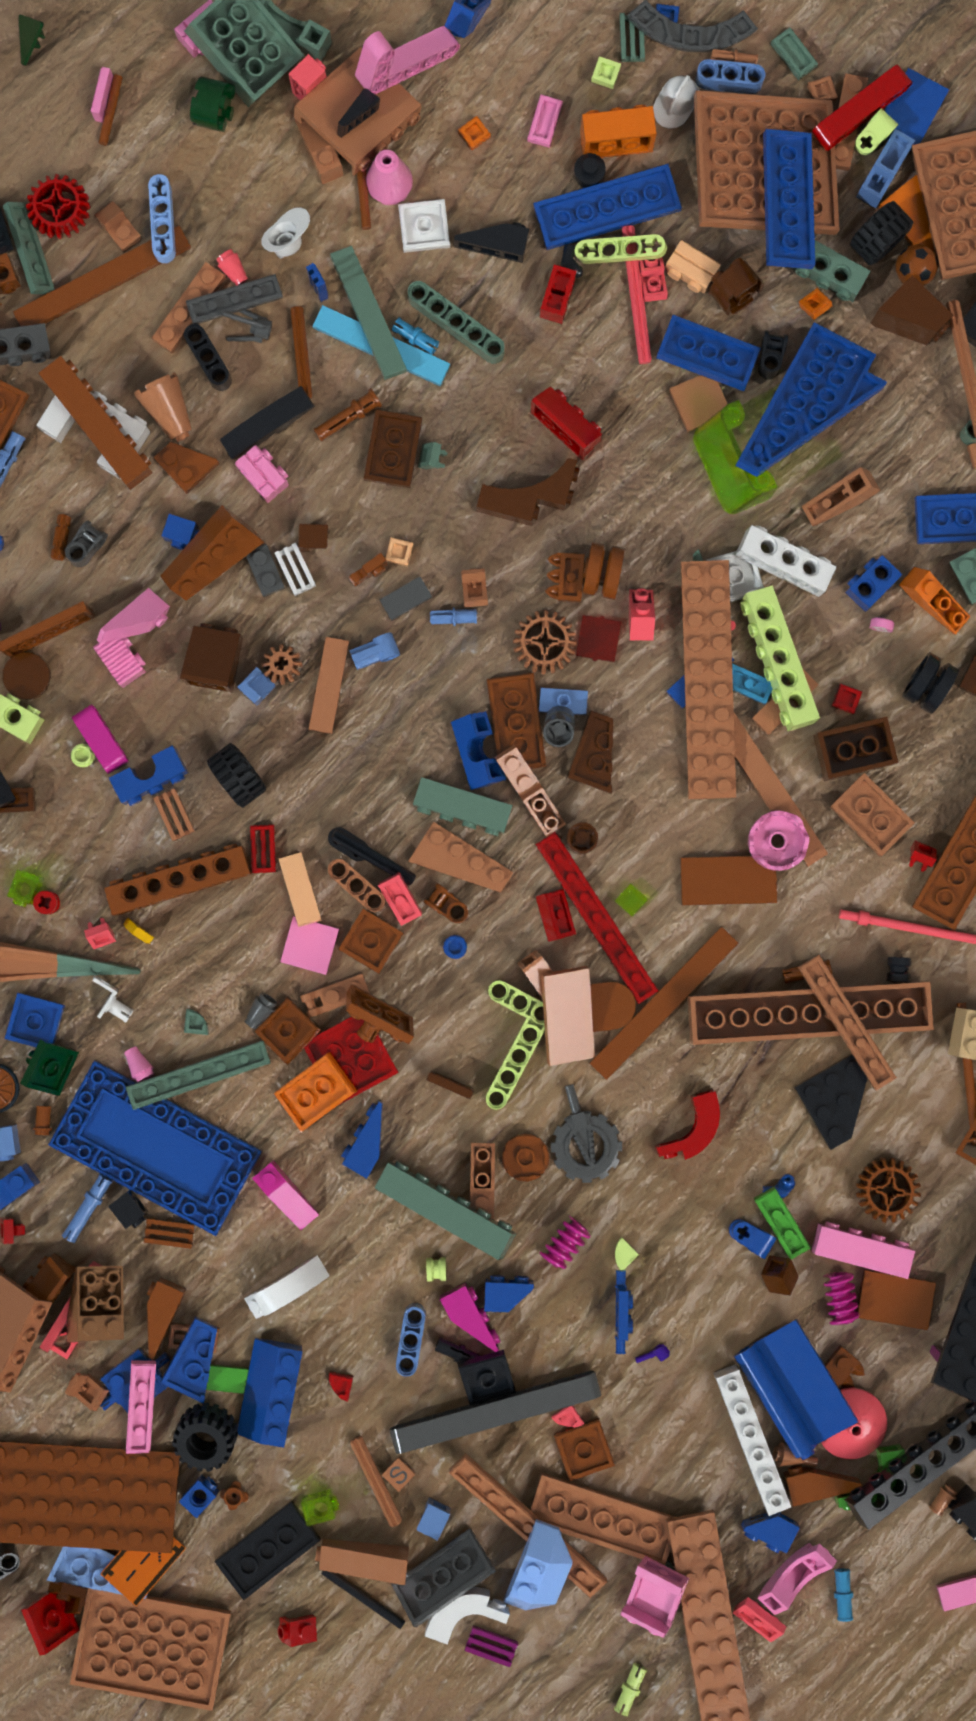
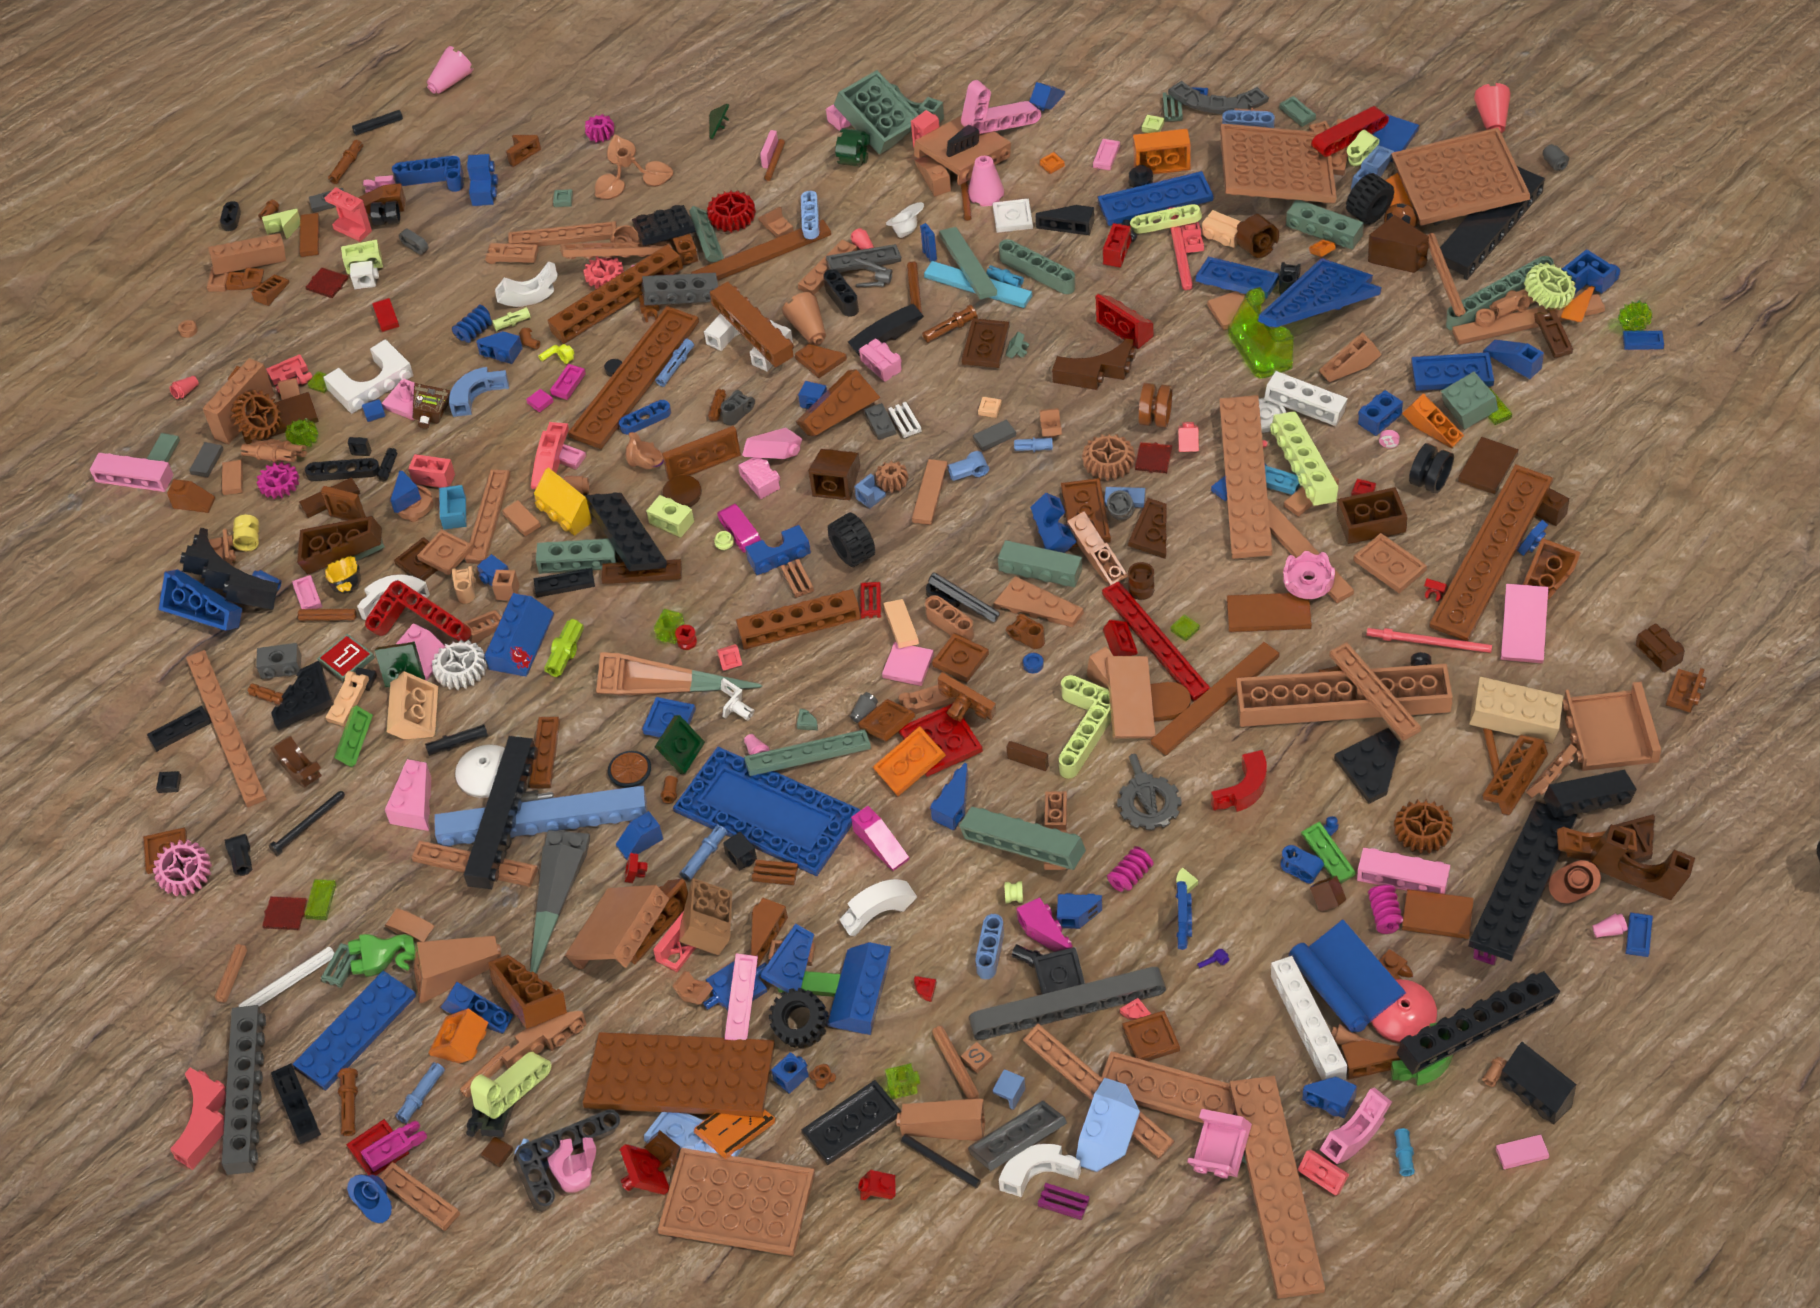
camera: 10 degrees right, 35 degrees down
(138, 931) = (762, 653): yellow tile -> none
(313, 537) = (919, 392): reddish brown panel -> none
(374, 567) = (966, 415): dark orange plate -> none
(400, 899) = (986, 626): coral plate -> none
(525, 1157) = (1094, 811): dark orange tile -> none
(568, 577) = (1126, 416): dark orange plate -> none
(630, 1689) = (1199, 1235): yellowish green pin -> none
(675, 102) = (1207, 139): white piece -> none
(789, 199) = (1294, 176): blue plate -> none

